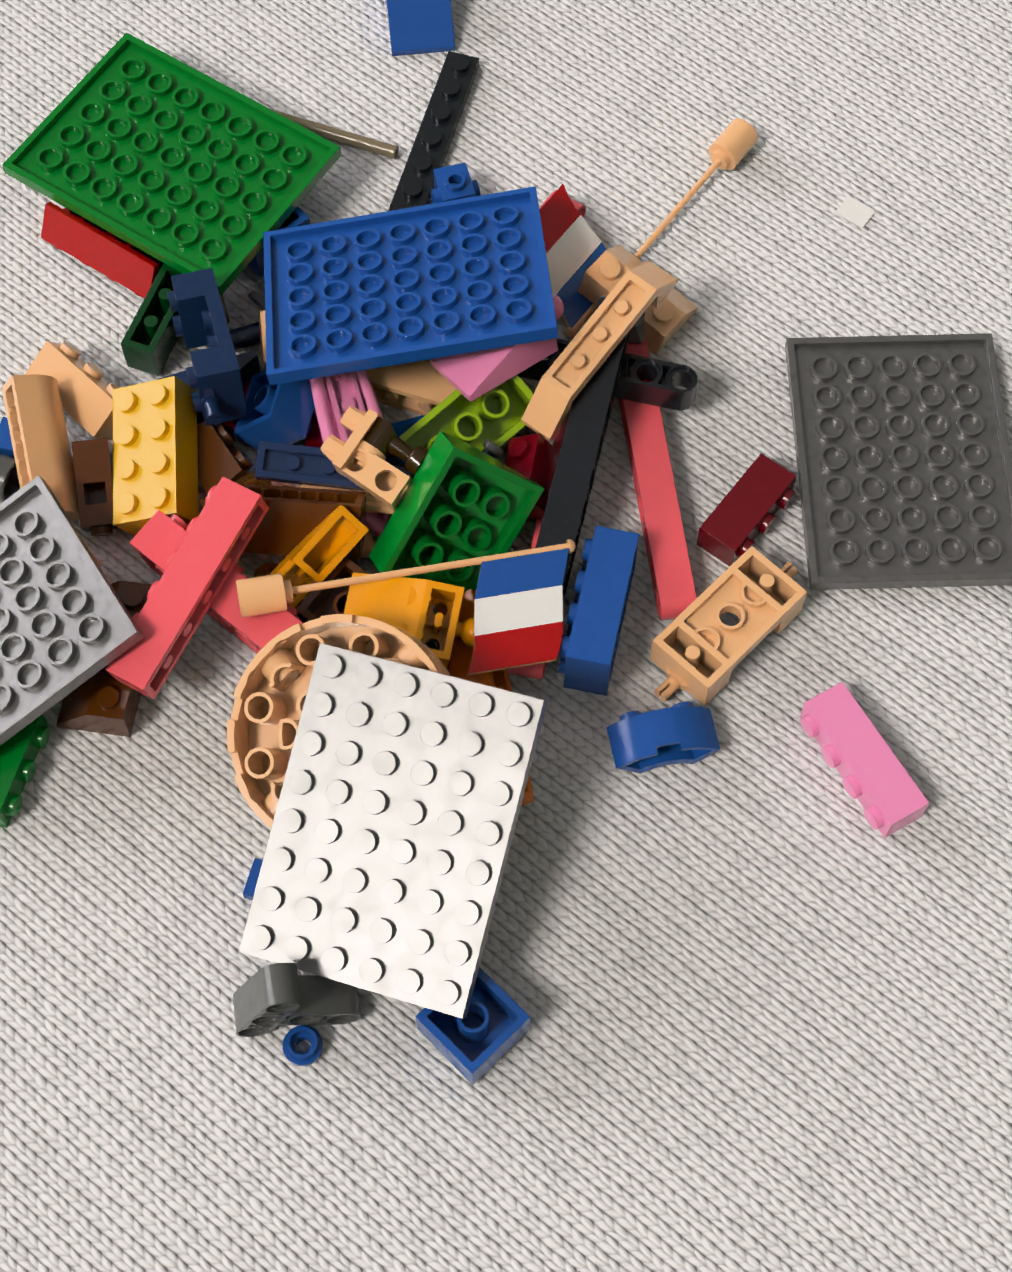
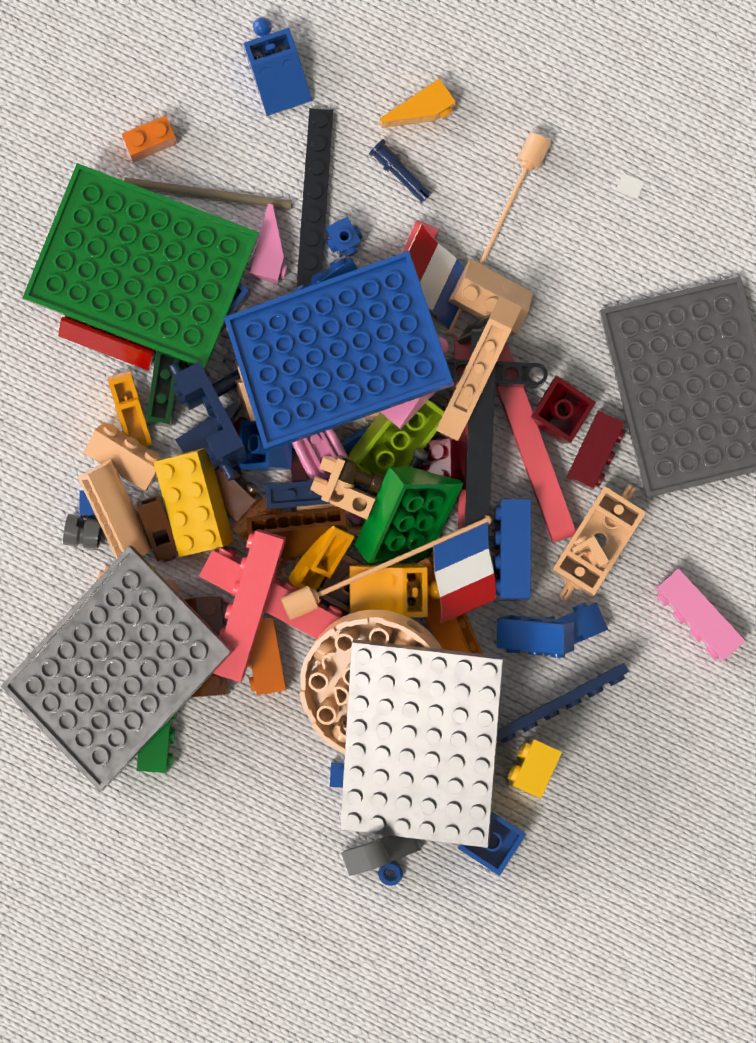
camera: 15 degrees left, 20 degrees up
(105, 333) = (129, 407): none -> light orange slope
(198, 692) = (266, 661): none -> orange brick
(233, 44) = (149, 138): none -> orange brick
(351, 189) = (269, 258): none -> bright pink slope
(542, 127) = (392, 163): none -> dark blue pin
(562, 908) = (534, 768): none -> yellow brick
(594, 73) = (425, 106): none -> light orange slope
(608, 728) = (535, 635): none -> blue brick
(623, 834) = (568, 699): none -> dark blue plate
(707, 442) = (562, 411): none -> dark red slope
(718, 620) = (595, 552): none -> light nougat bracket

